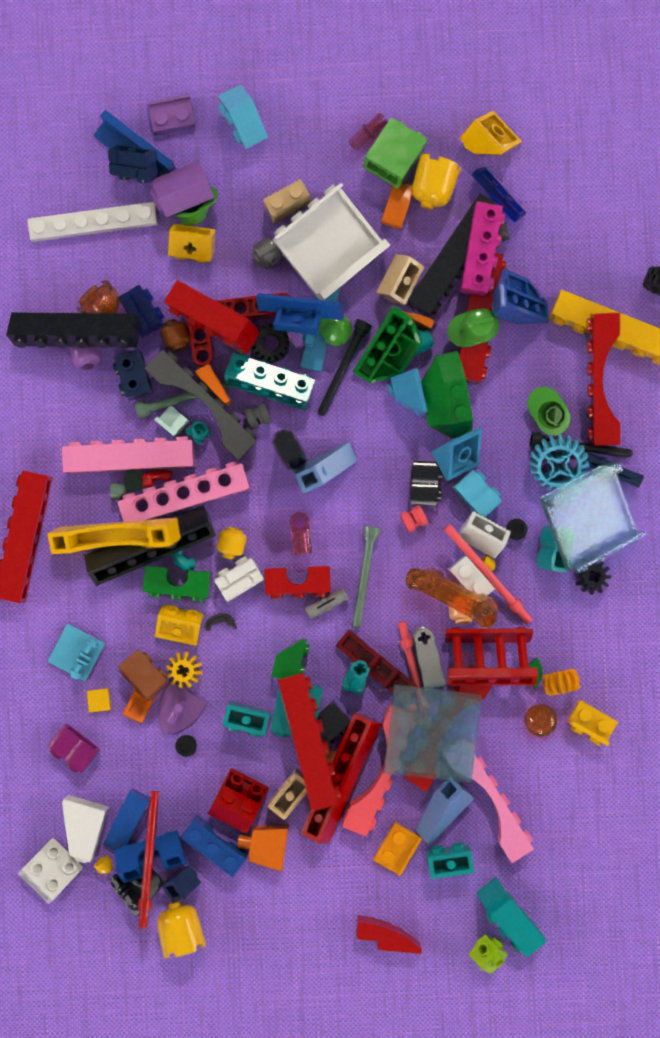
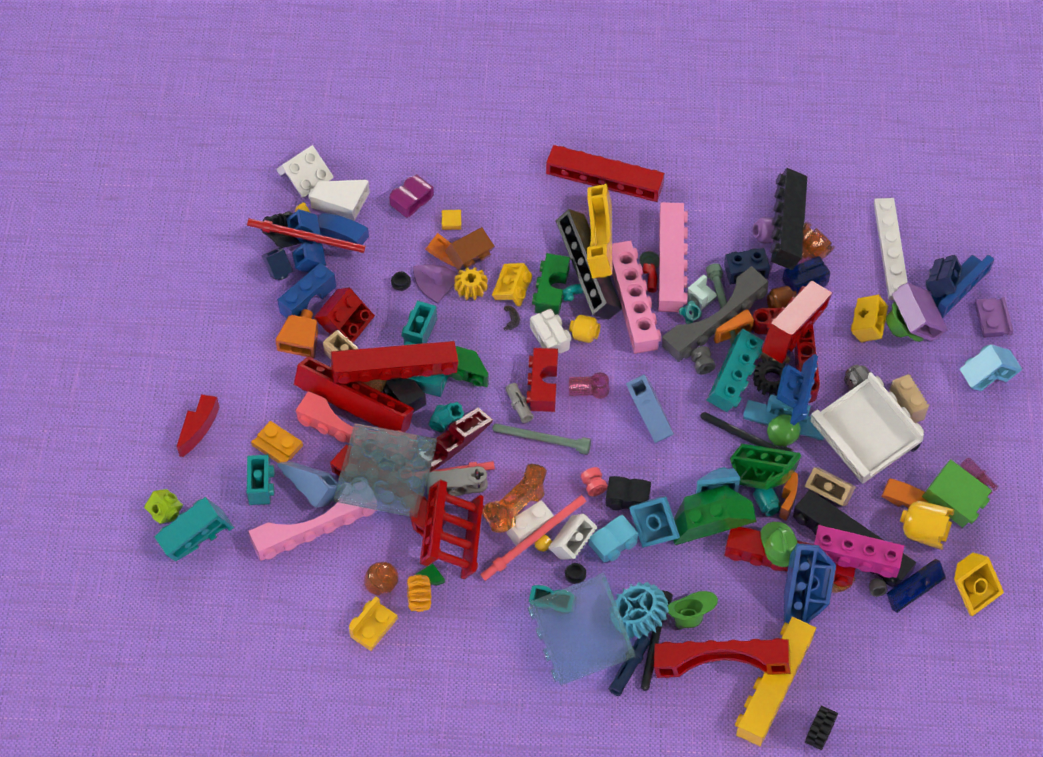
camera: 90 degrees right, 30 degrees down
(76, 652) = (496, 206): medium azure hinge -> none
(117, 491) = (640, 244): sand green hinge -> none
(179, 930) = (236, 258): yellow cylinder -> none
(288, 448) = (668, 366): black brick -> none
(591, 585) = (518, 642): black gear -> none

